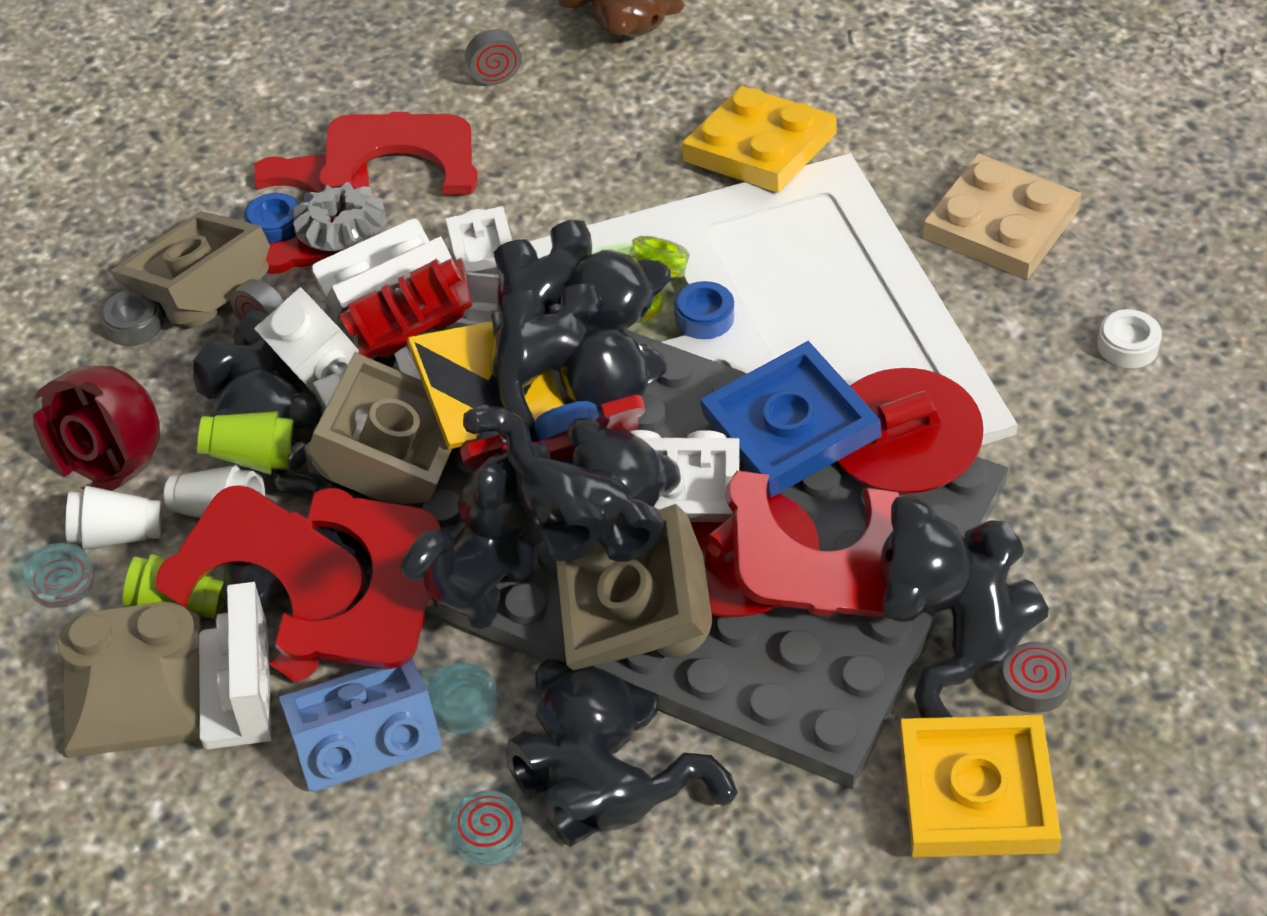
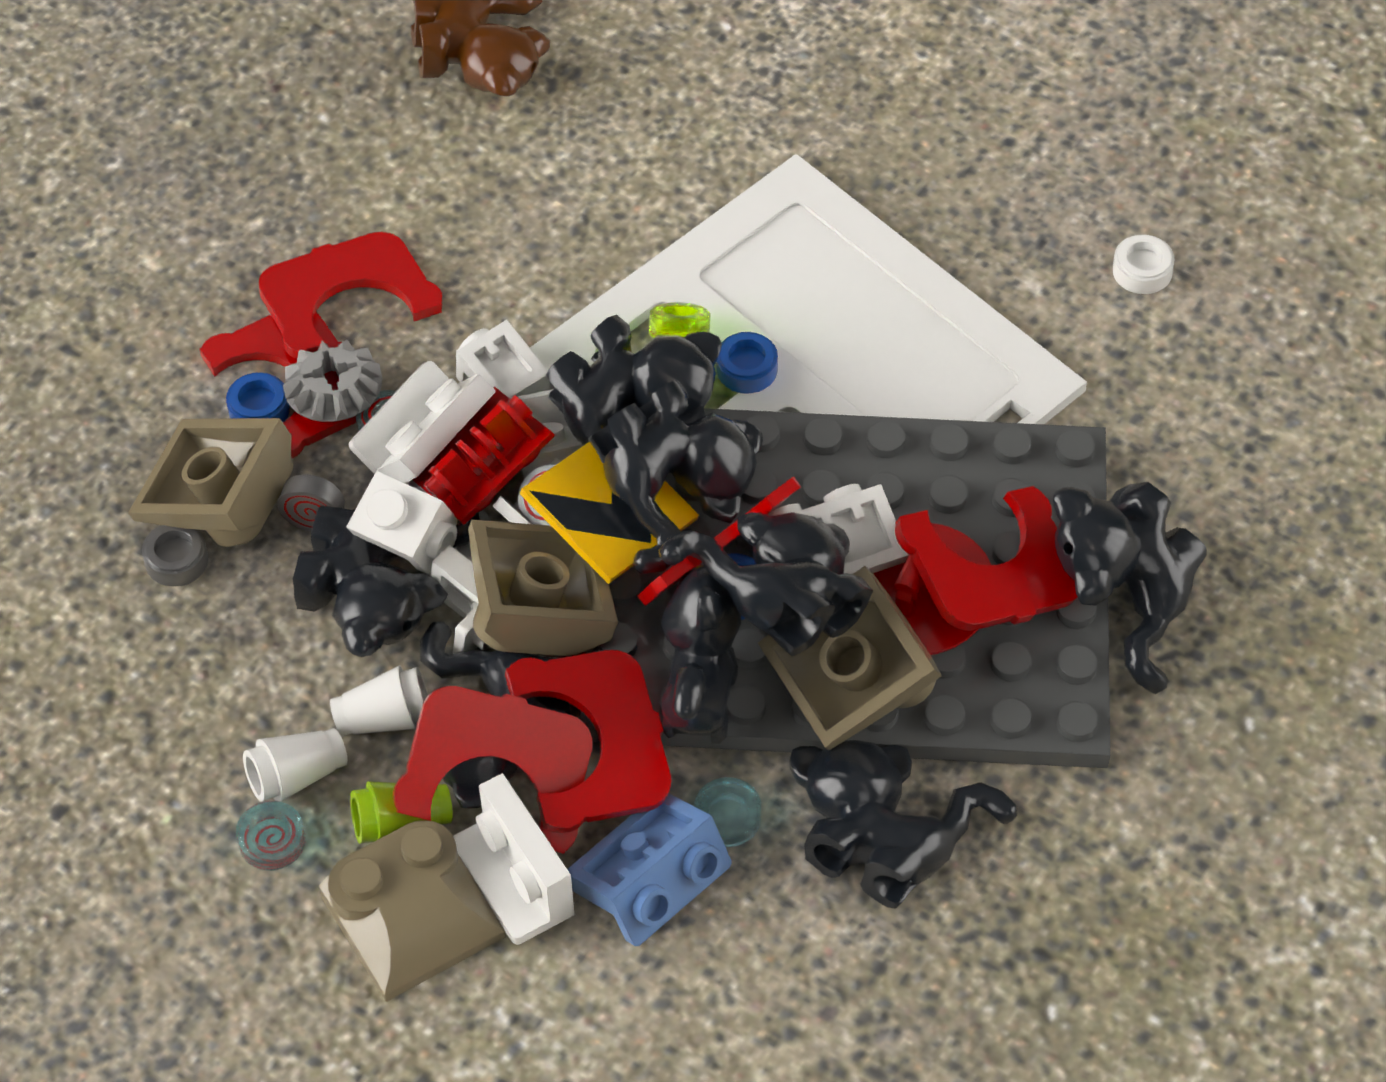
camera: 25 degrees left, 5 degrees up
(97, 425) = (232, 678): dark red cylinder -> none
(249, 440) = (403, 639): lime cone -> none
(487, 828) = (816, 919): clear light blue tile -> none
(493, 57) = (387, 157): flat silver tile -> none
(557, 420) = (717, 517): blue tile -> none
(759, 138) = (701, 165): yellow plate -> none
(791, 417) = (906, 442): blue plate -> none
(926, 430) = (1005, 423): red shield -> none
(979, 786) = (1218, 725): yellow plate -> none
(1002, 216) = (969, 175): tan plate -> none
(1036, 677) = (1216, 612): flat silver tile -> none

